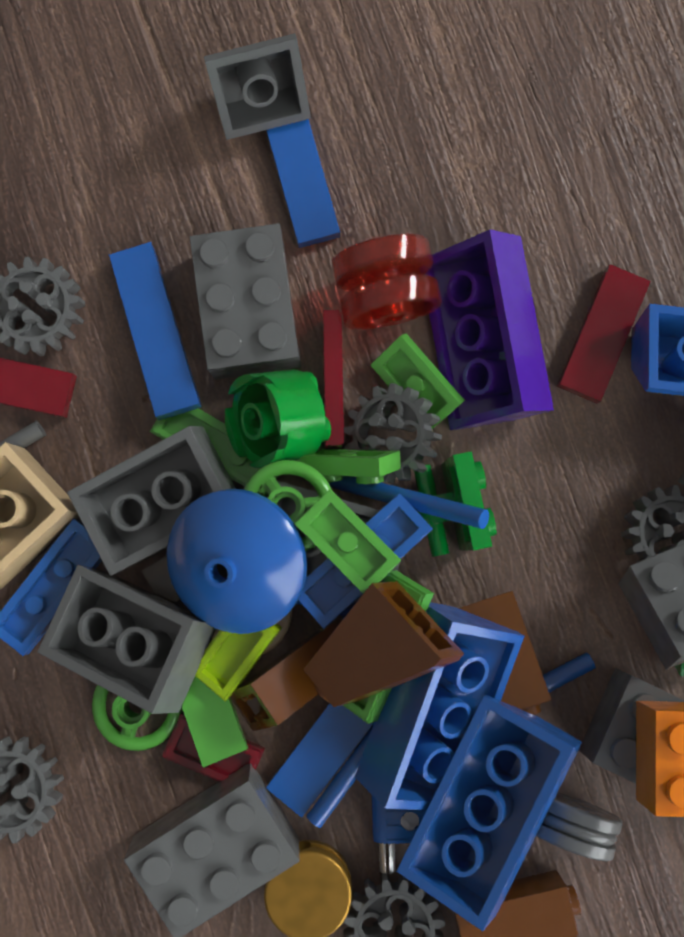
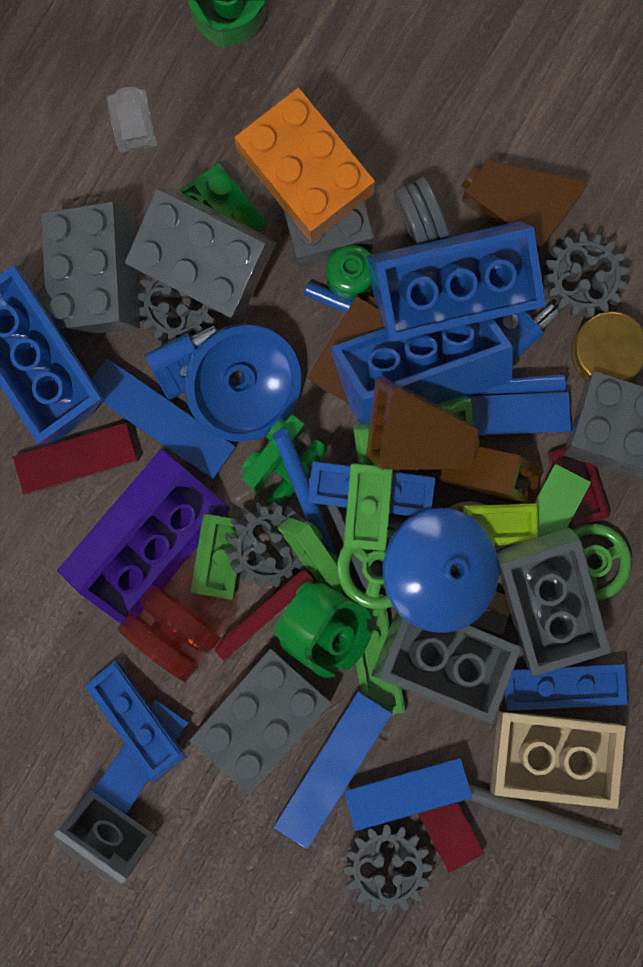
camera: 130 degrees left, 0 degrees up
(77, 374) = (408, 794): none -> blue tile
(335, 199) = (135, 721): none -> blue tile
(527, 538) = (261, 395): none -> blue dish
(577, 711) = (348, 272): none -> green head
(579, 434) = (161, 419): none -> blue tile
(614, 487) = (172, 359): none -> blue piece

